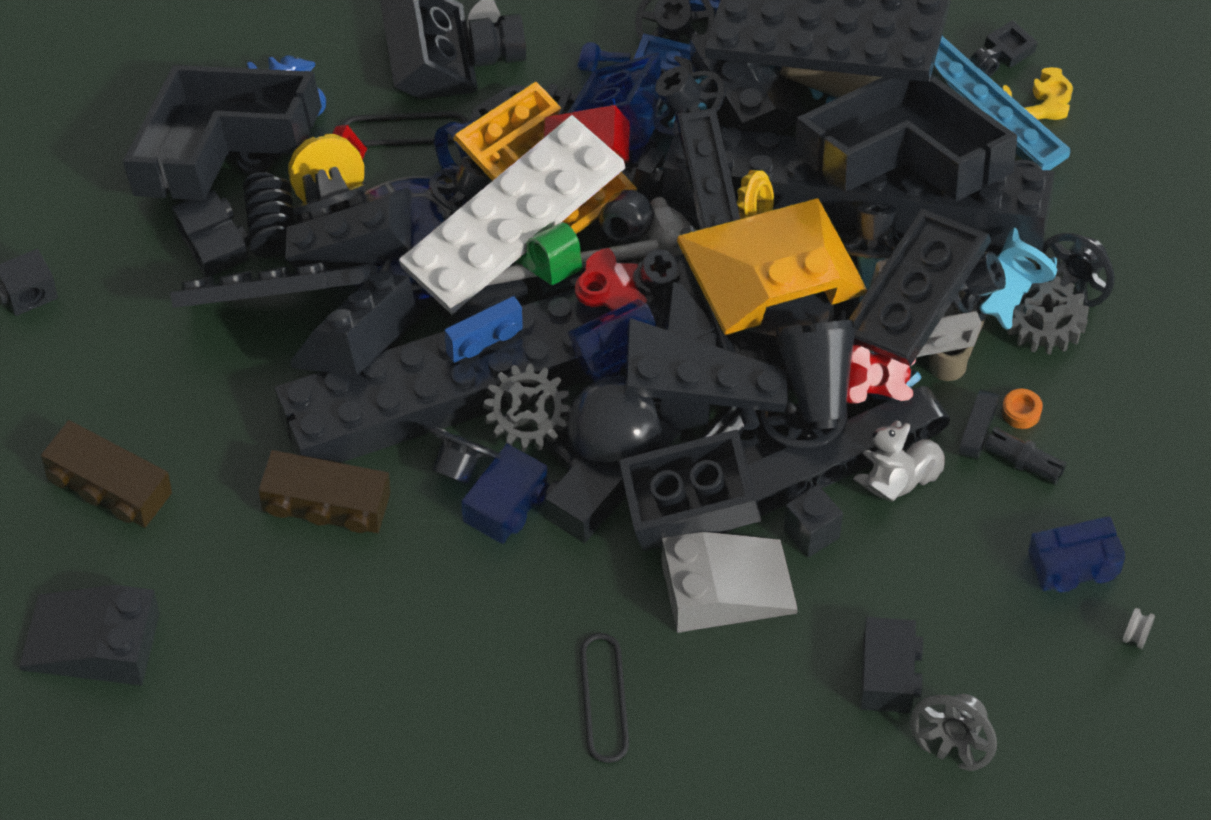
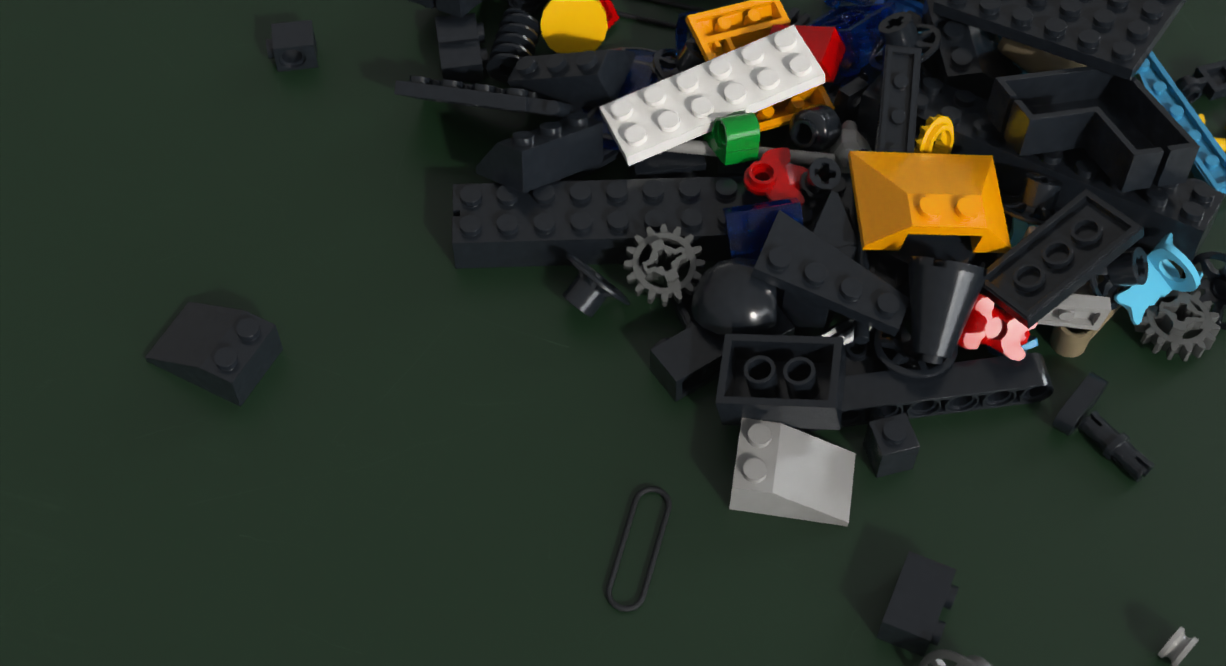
camera: 20 degrees right, 0 degrees up
(106, 474) = (287, 218): dark brown brick -> none
(324, 492) = (463, 287): dark brown brick -> none
(326, 193) = (563, 36): black plate -> none
(484, 329) = (648, 185): blue plate -> none
(505, 494) = (618, 336): clear blue brick -> none
(900, 471) = (987, 424): light grey animal -> none
(1022, 408) = (1126, 401): orange tile -> none
(1077, 554) = (1137, 555): clear blue brick -> none

